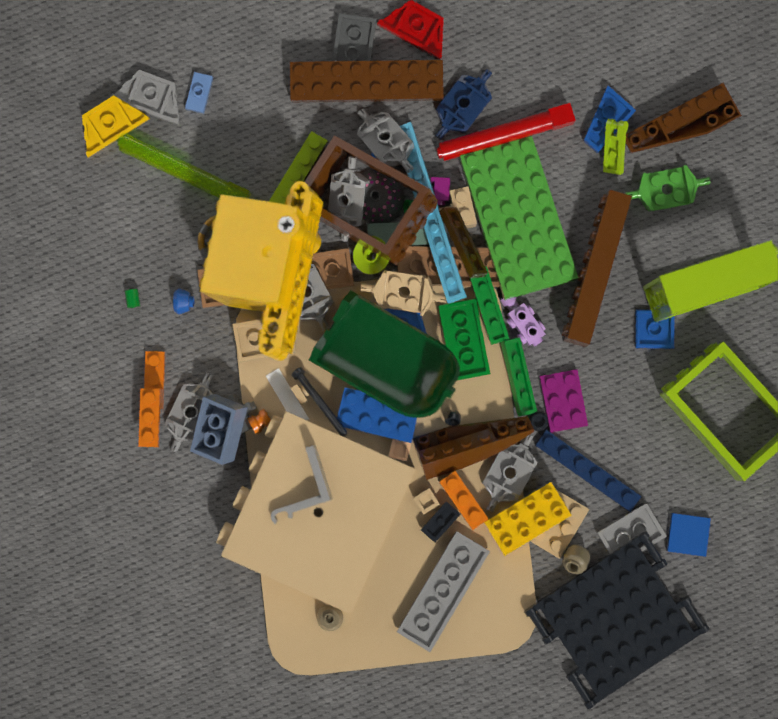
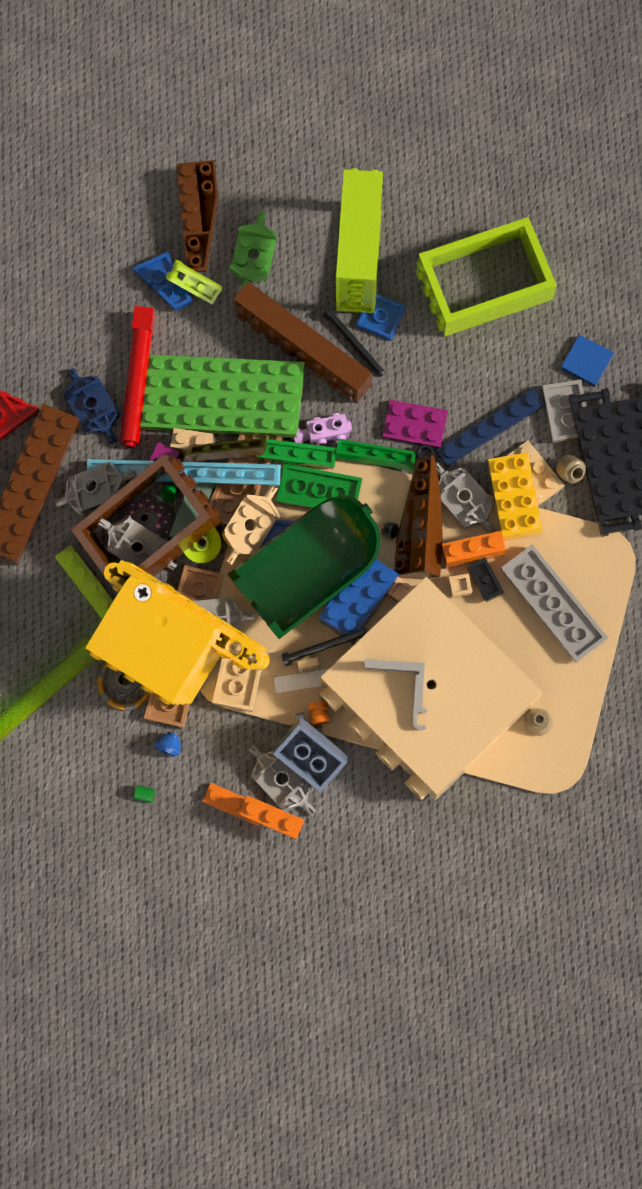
camera: 65 degrees left, 10 degrees down
(620, 313) = (330, 314): none -> black bar

